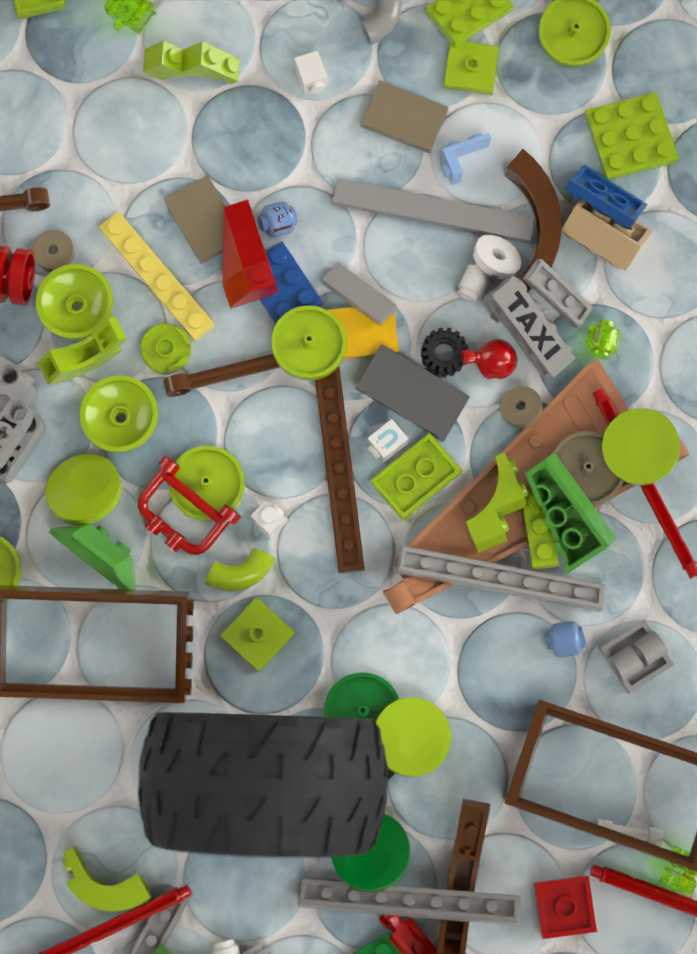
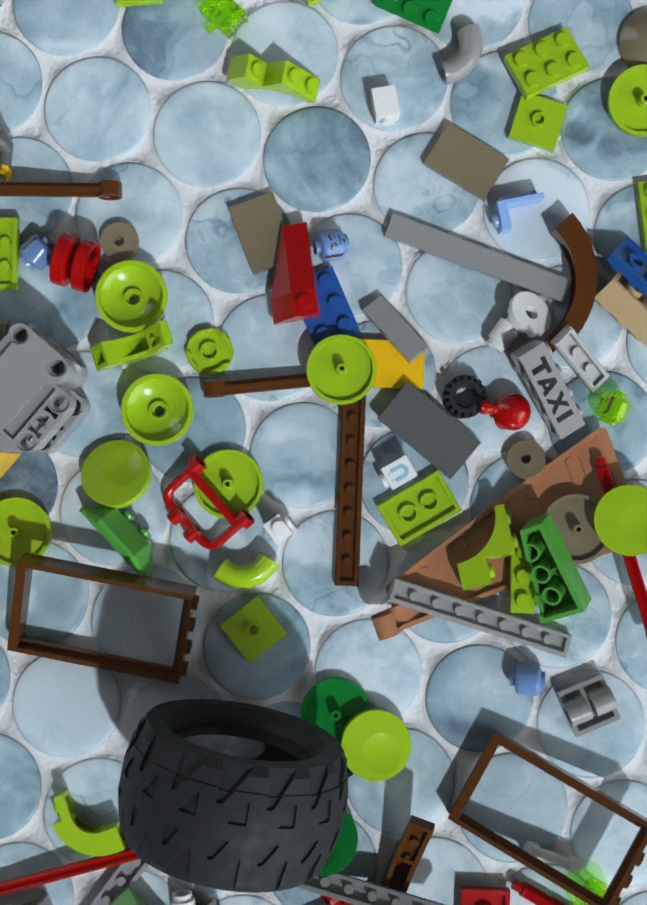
camera: 15 degrees right, 10 degrees up
(156, 276) = (211, 281): light yellow plate -> none

